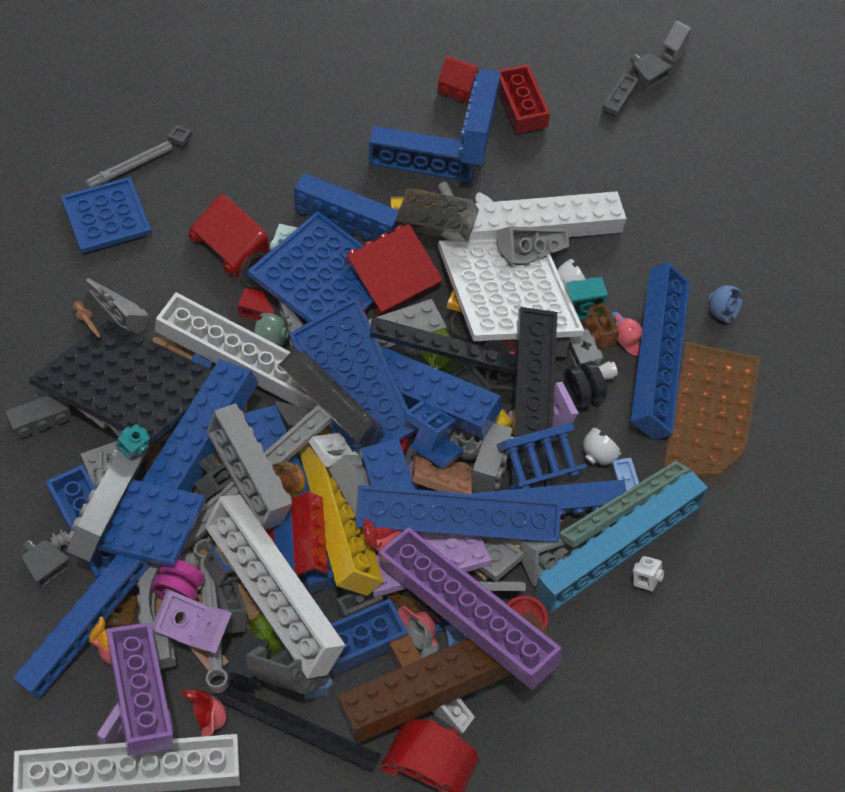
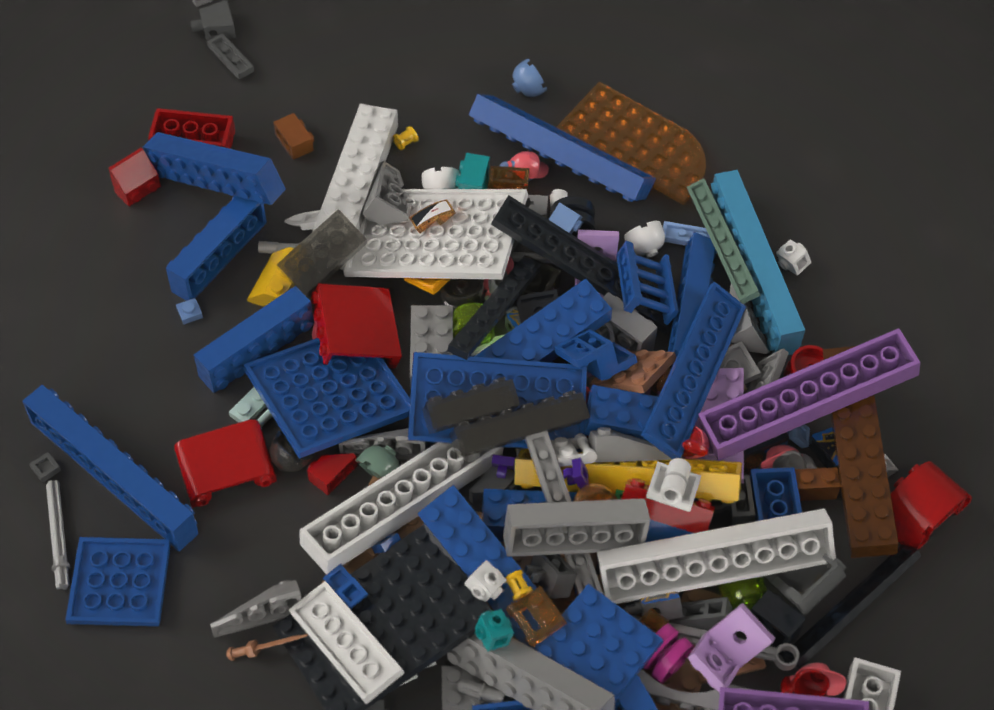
camera: 65 degrees left, 0 degrees up
(96, 358) = (346, 642): none -> white plate
(149, 345) = (345, 586): none -> blue slope
(165, 474) = (542, 611): none -> clear orange plate
(176, 417) = (486, 582): none -> white brick
(182, 447) = (521, 592): none -> yellow bush
(191, 170) = (111, 467): none -> blue brick
(203, 563) = (653, 620): none -> clear orange tile
(305, 408) = (503, 463): none -> dark purple tile
(307, 457) = (577, 474): none -> dark purple tile
(319, 524) = (674, 484): none -> white plate
(328, 354) = (464, 406): none -> clear smoke brick
(359, 165) = (189, 311): none -> medium blue plate
(523, 277) = (436, 212): none -> slope
(563, 164) = (294, 136): none -> dark orange brick
(567, 367) = (566, 218): none -> medium blue brick
(608, 239) = (405, 137): none -> yellow bush

